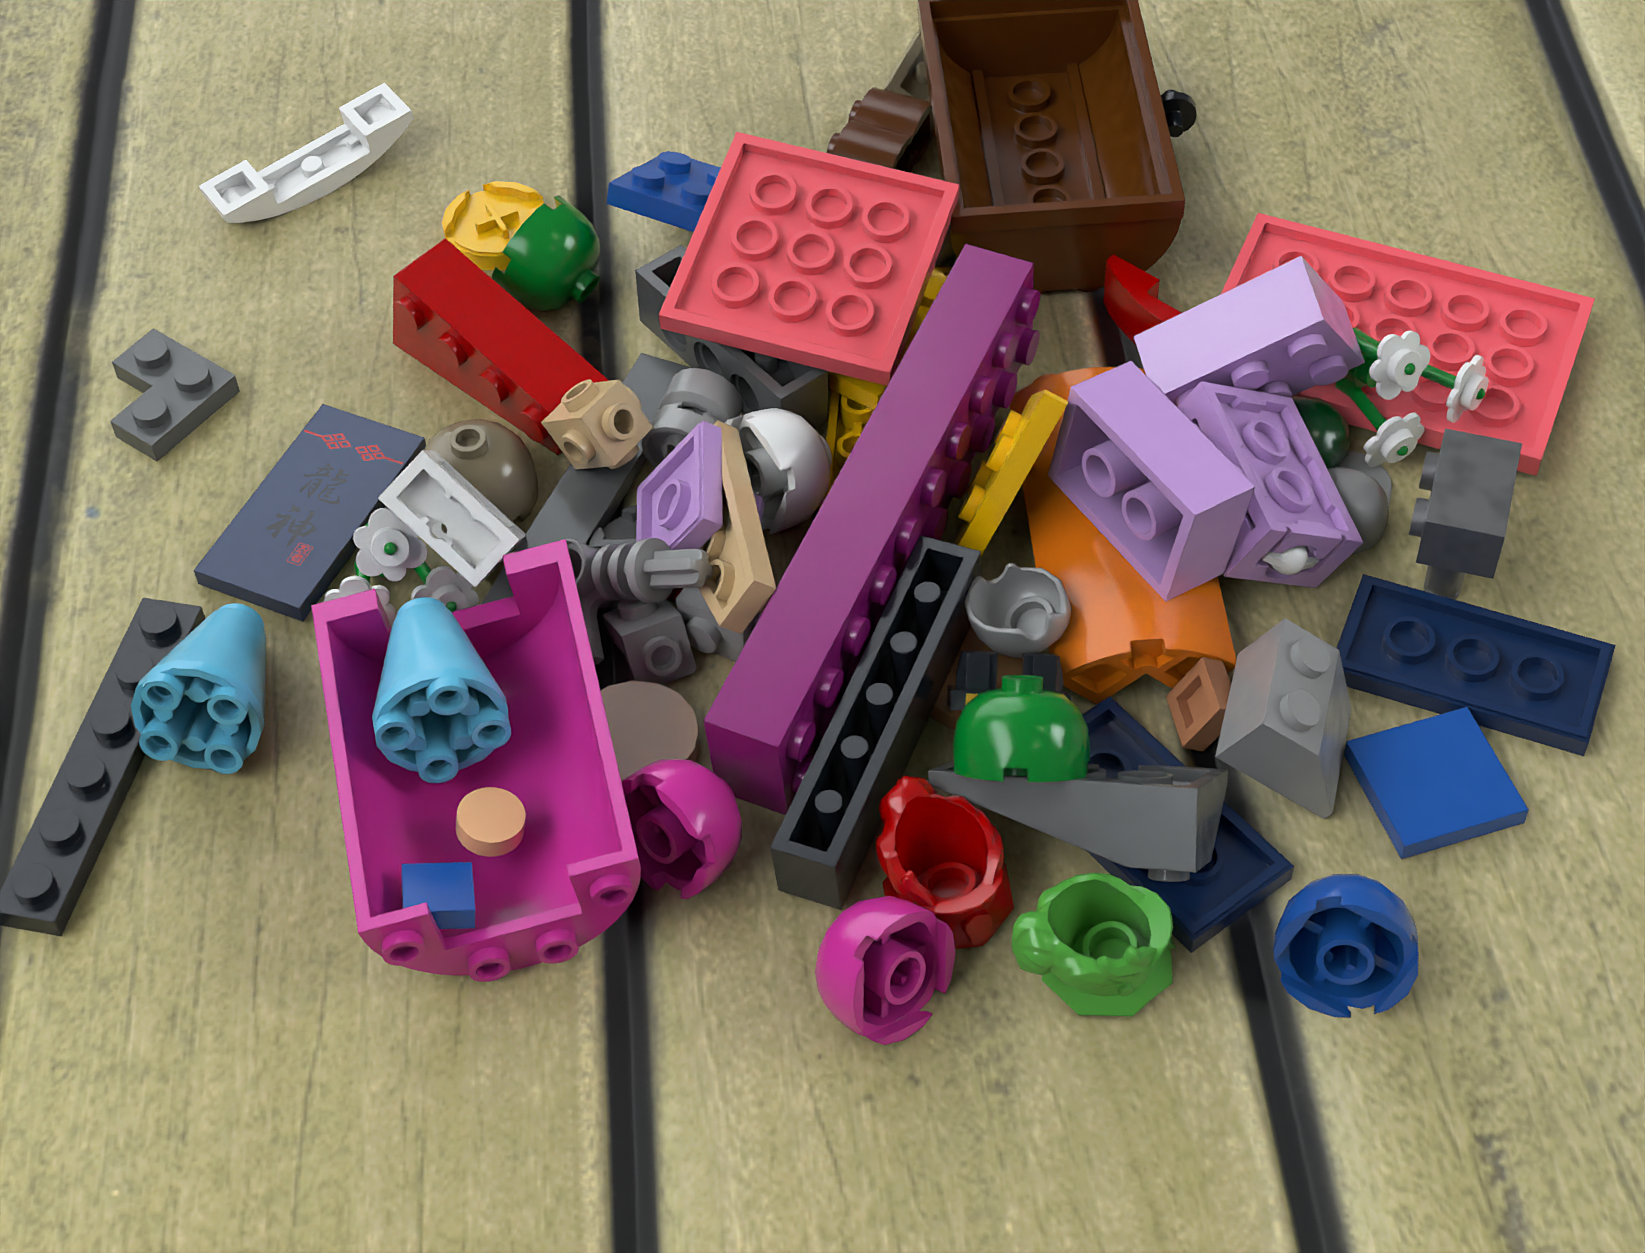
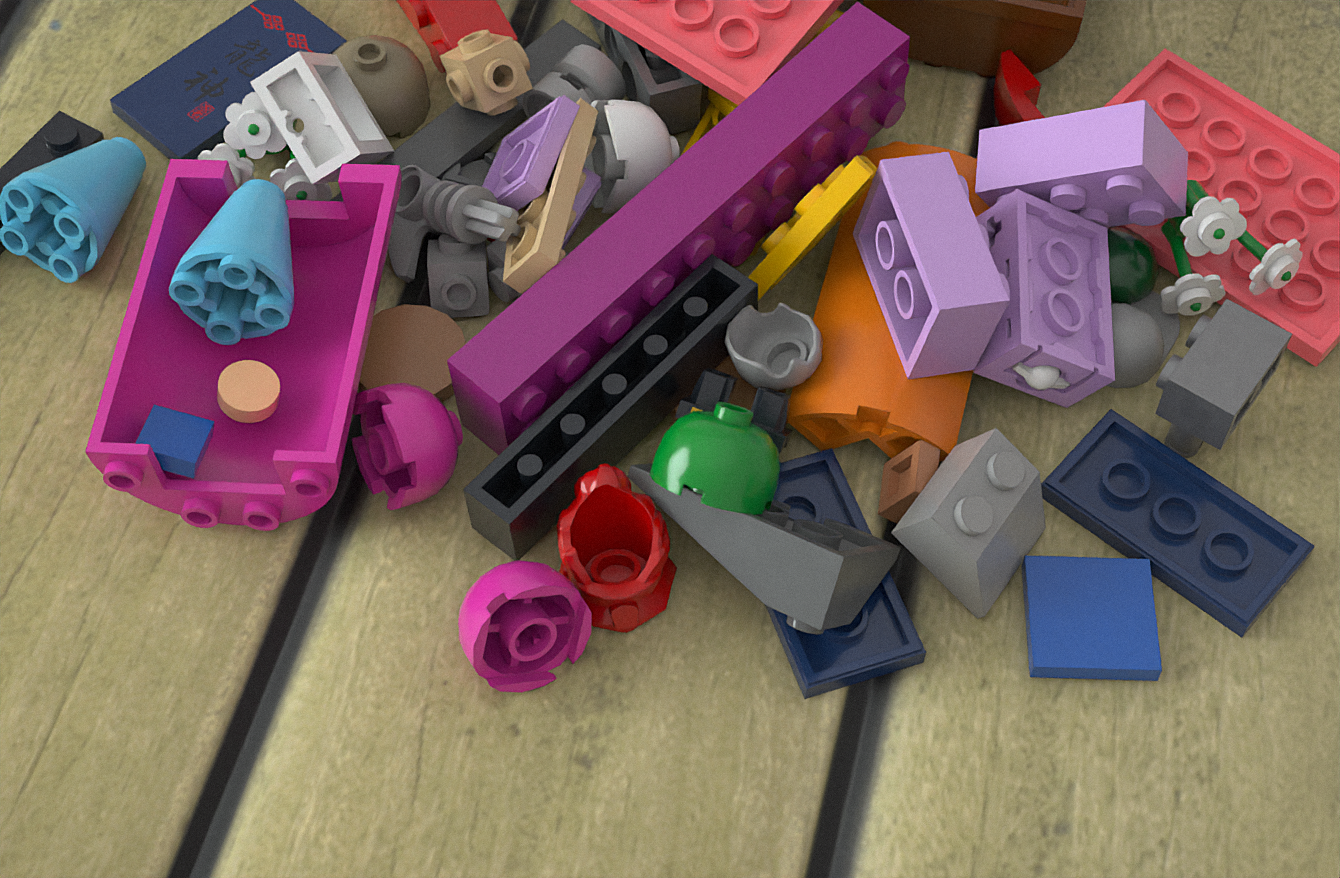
camera: 15 degrees right, 5 degrees up
(1098, 944) = (717, 664): bright green piece -> none
(1346, 946) = (934, 738): blue cylinder -> none

